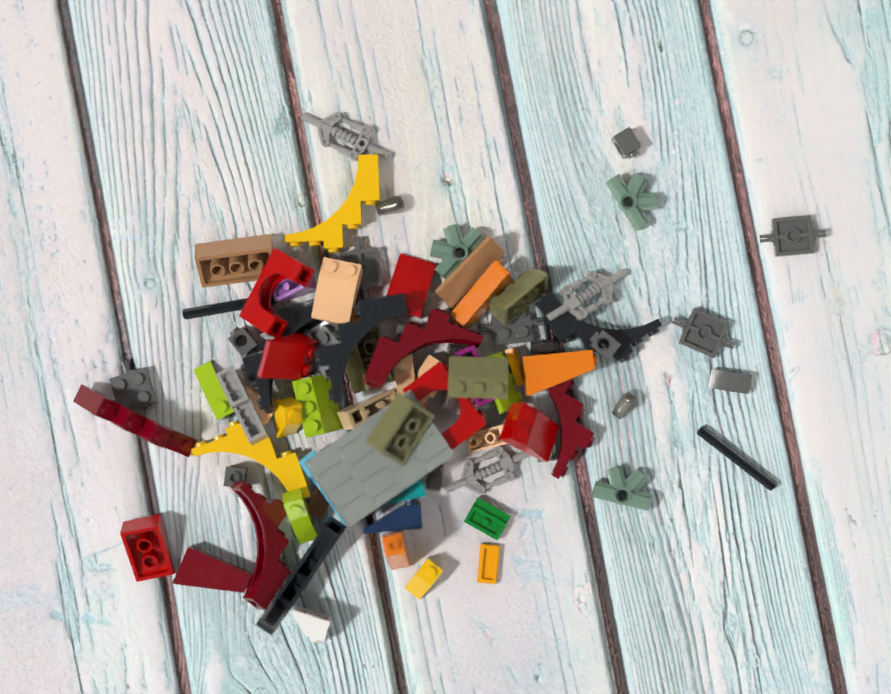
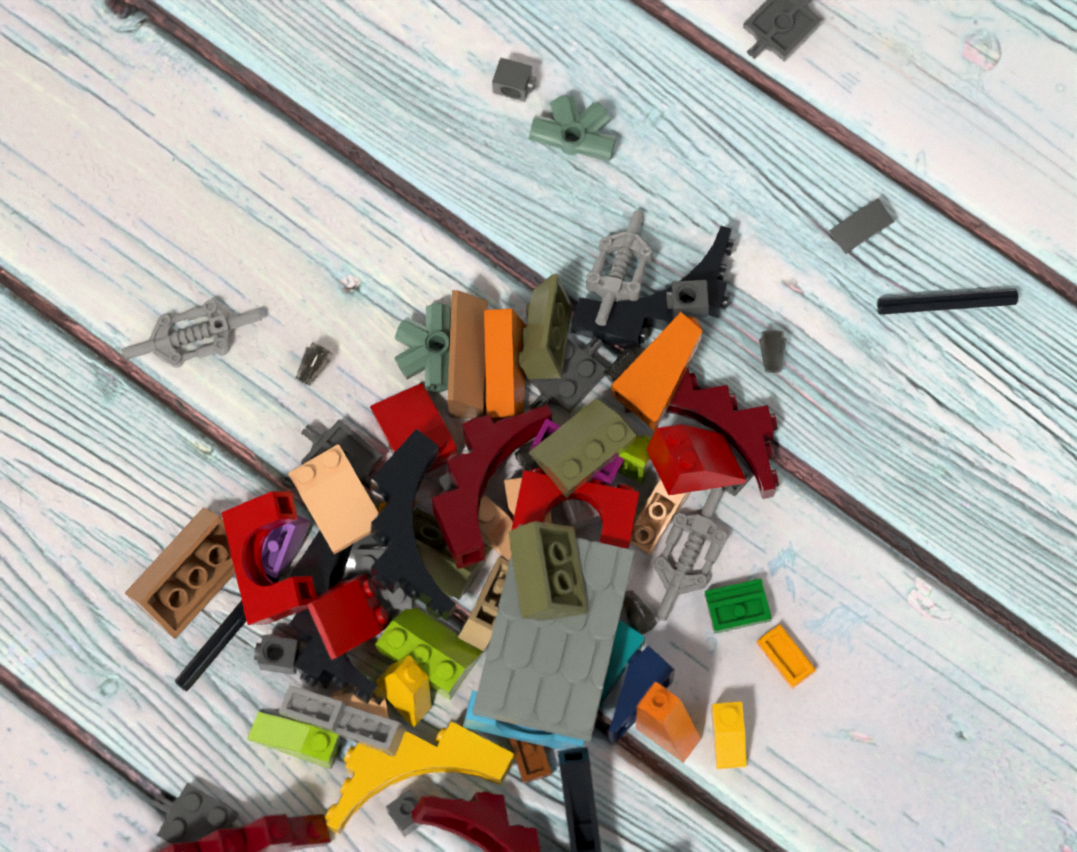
camera: 35 degrees left, 15 degrees down
(299, 515) = (523, 787): lime slope -> none
(349, 215) = (275, 412): yellow arch -> none
(516, 365) = (632, 421): light orange tile -> none
(629, 485) = (860, 431): sand green piece -> none
(703, 333) = (784, 202): dark grey plate -> none

